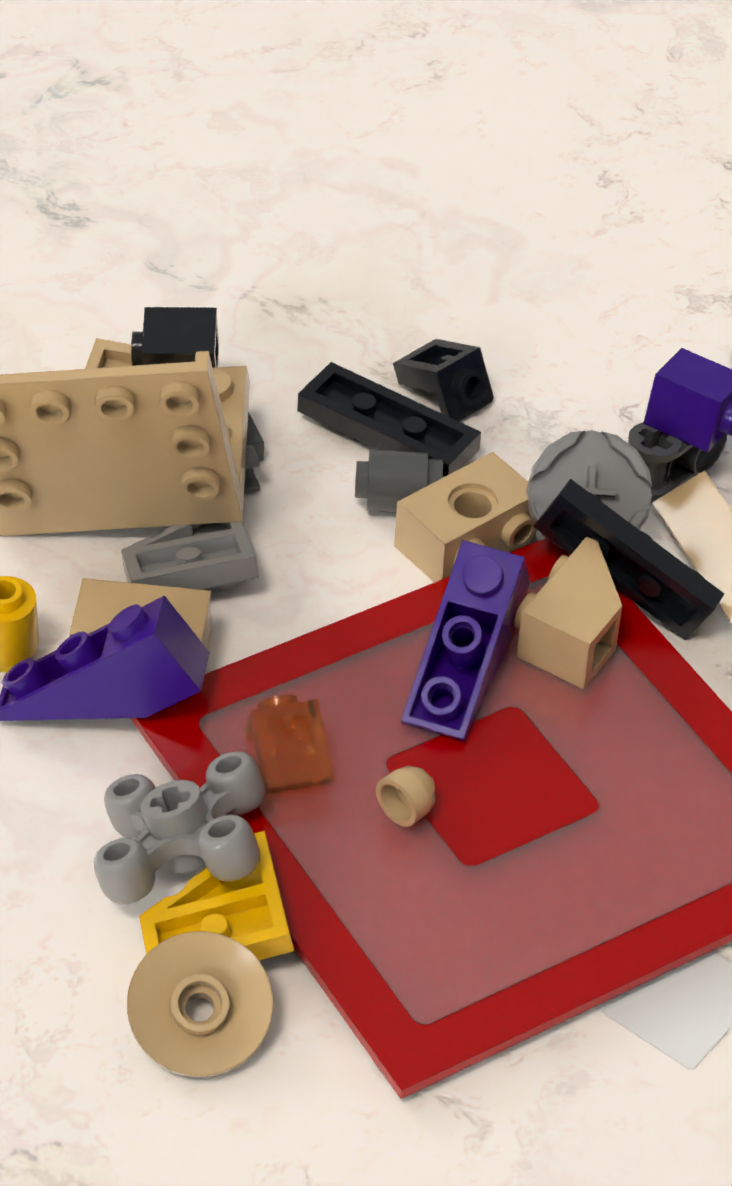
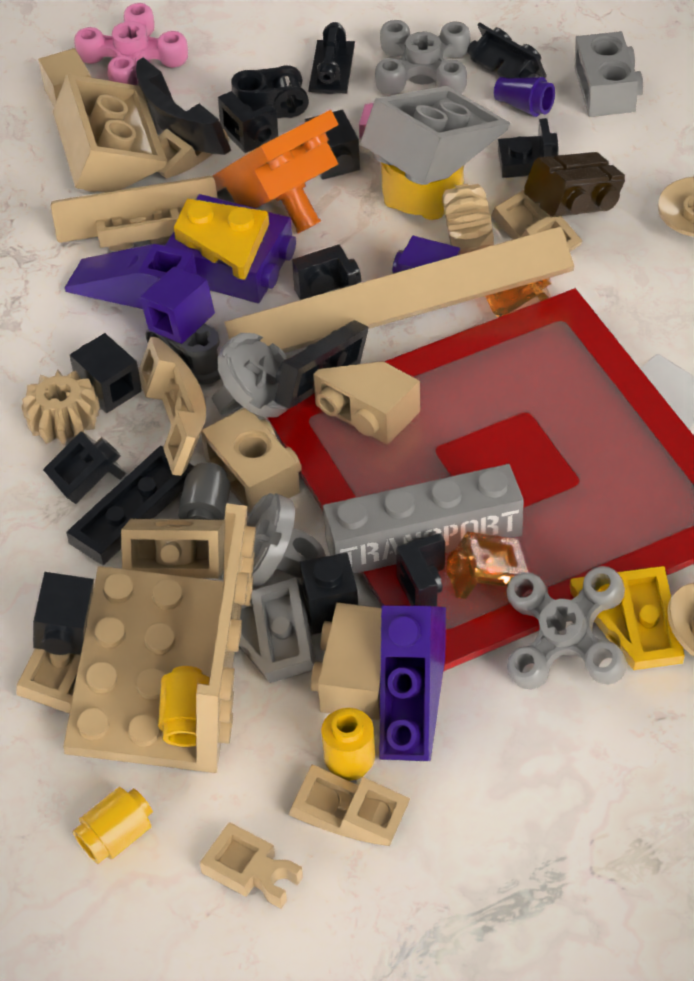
camera: 80 degrees left, 5 degrees up
(245, 600) = (324, 584): none -> black brick
(262, 669) = (419, 567): none -> black bracket
(303, 449) = (174, 547): none -> tan brick
(317, 531) = (276, 540): none -> light grey tile
(352, 668) = (379, 522): none -> light grey brick
(406, 795) = (537, 501): tan hinge -> none
(467, 640) = (380, 451): dark purple slope -> none
(476, 431) = (171, 380): none -> tan slope
(539, 343) = (60, 406): none -> tan gear
(605, 377) = (109, 370): none -> black brick

